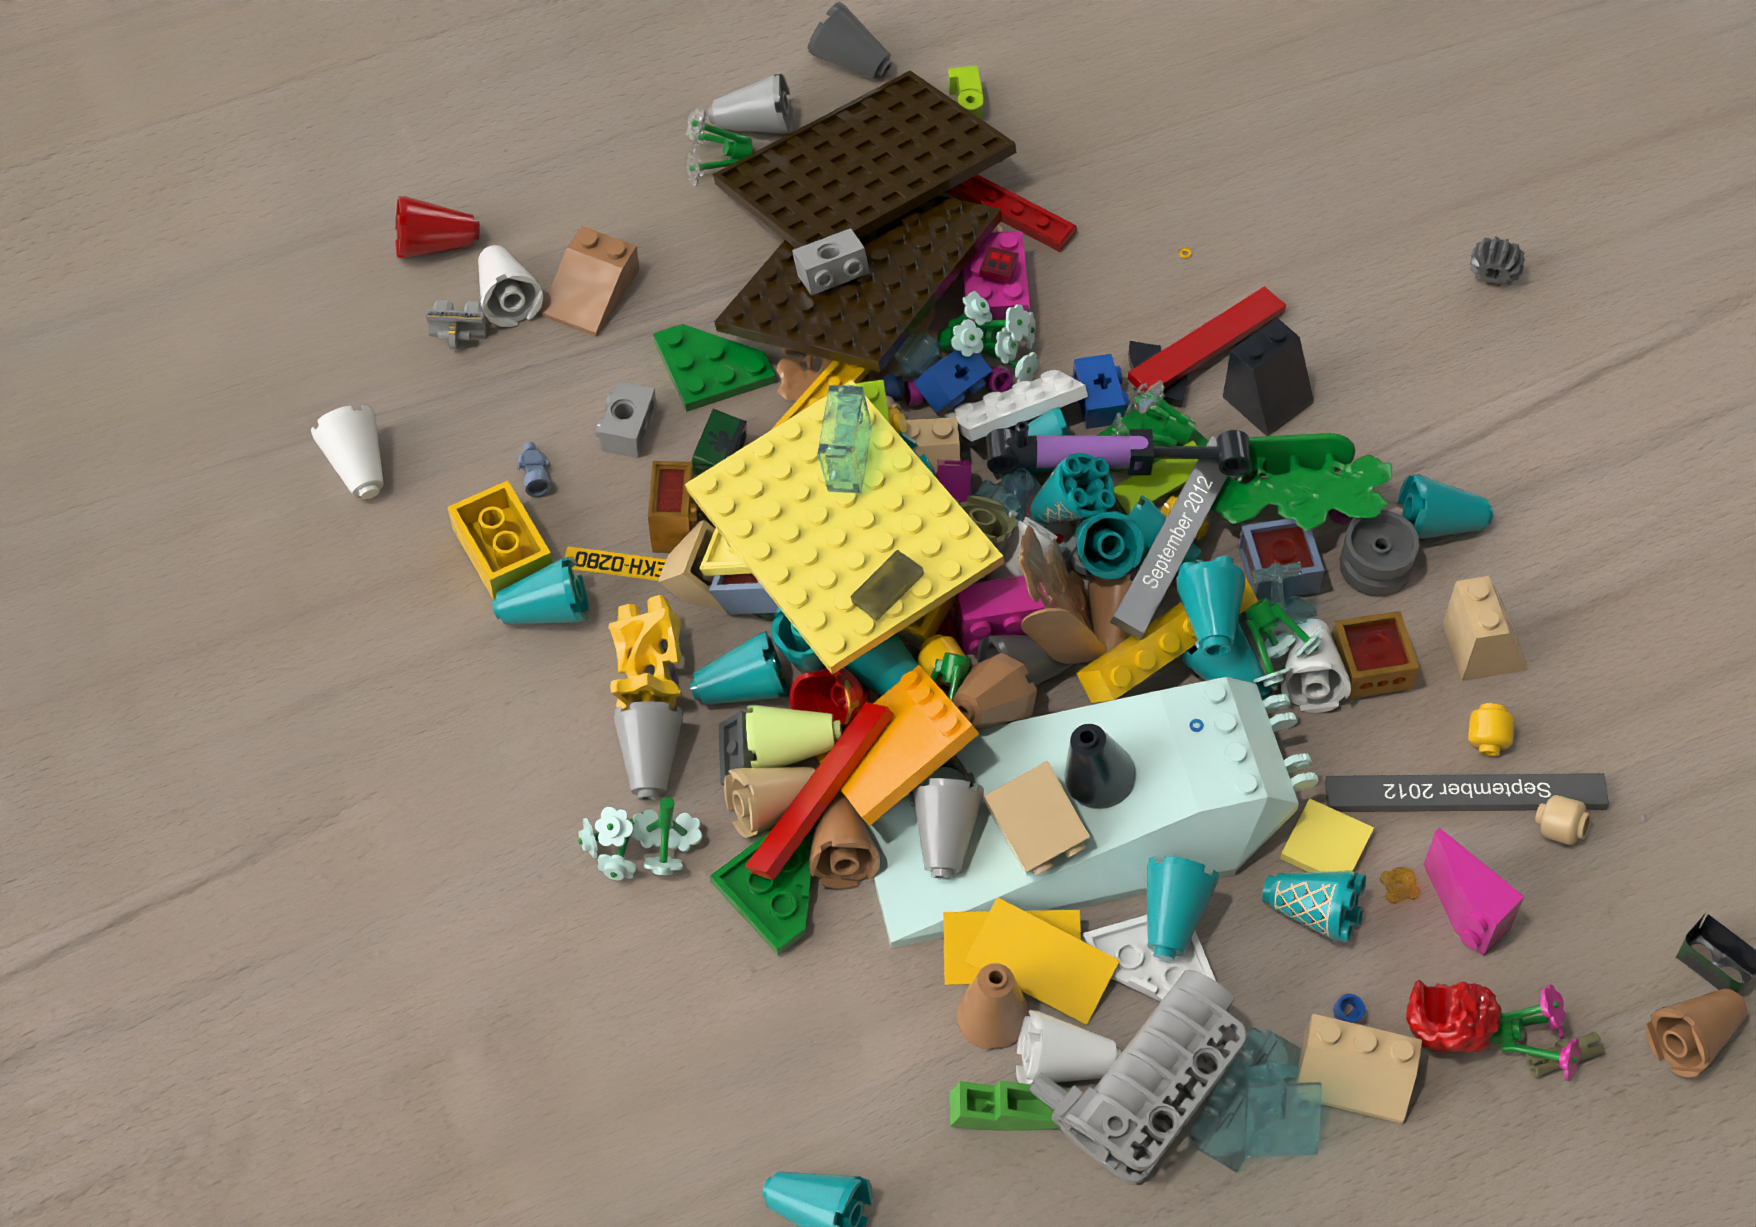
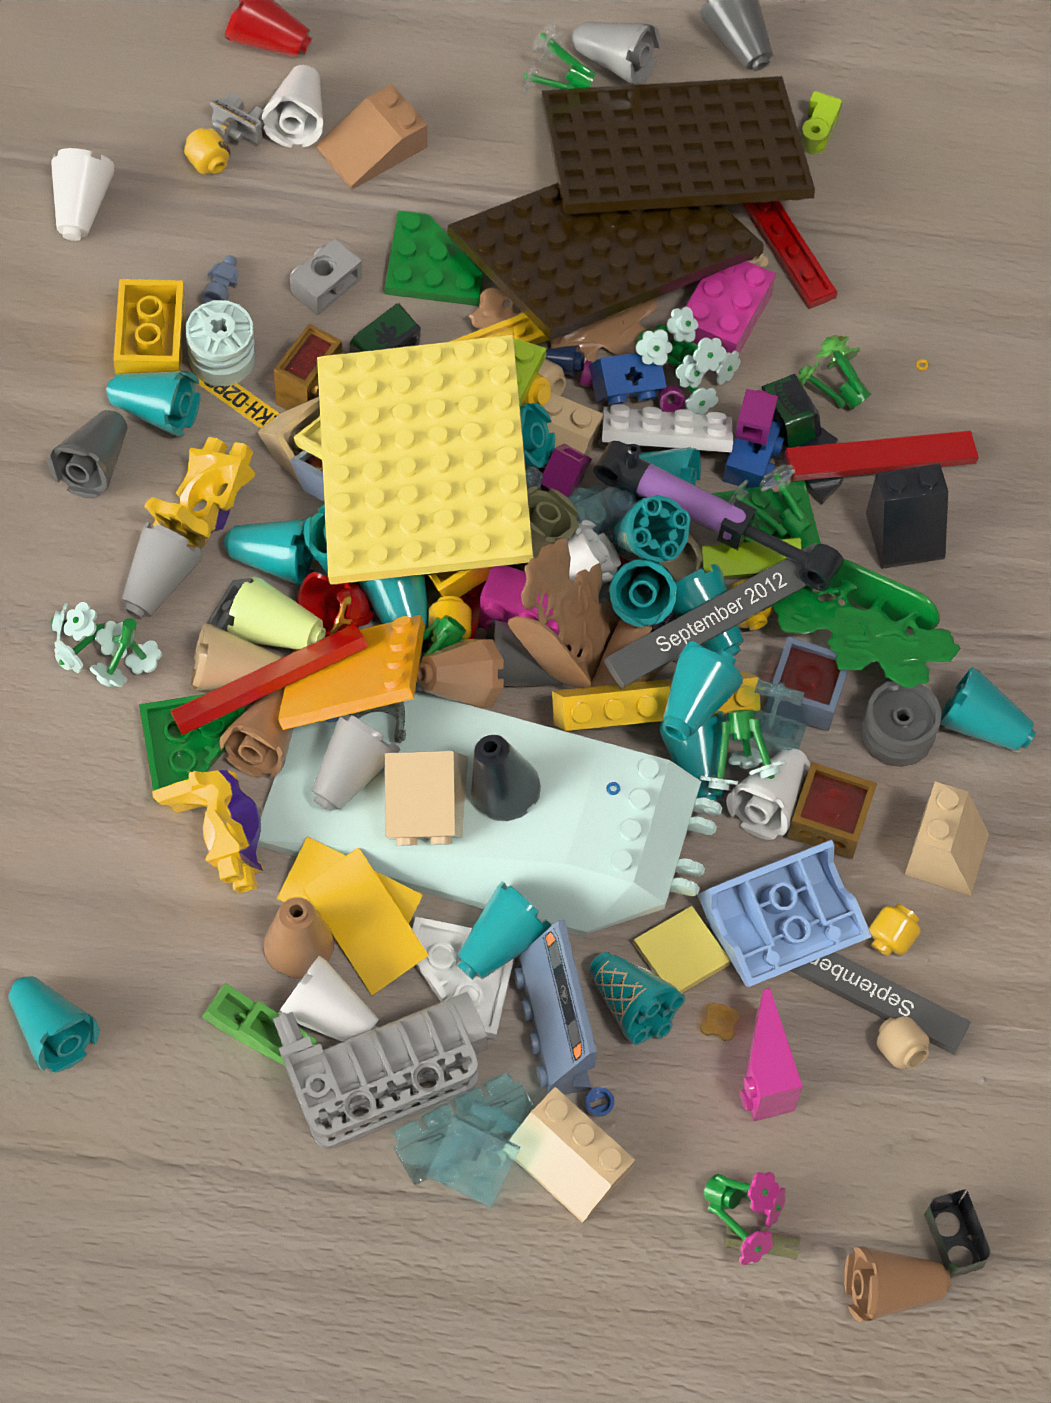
camera: 25 degrees right, 5 degrees up
(446, 362) = (207, 151): none -> yellow head
(518, 677) = (90, 454): none -> dark grey cone
(574, 519) = (220, 343): none -> light aqua wheel
(831, 261) = (575, 219): light grey brick -> none
(845, 439) = (459, 383): clear light blue window -> none
(870, 938) = (229, 824): none -> yellow hips
(887, 585) = (417, 530): clear smoke tile -> none
(917, 355) = (609, 340): clear light blue head -> none
(998, 264) = (729, 294): dark red tile -> none
(1090, 355) = (756, 416): none -> magenta brick
(1107, 334) = (794, 411): none -> piece
(1147, 299) = (853, 390): none -> plant
(1269, 945) = (556, 1012): none -> sand blue piece
(1393, 764) = (784, 915): none -> light blue piece
(1453, 1016) = (676, 1155): red hair -> none

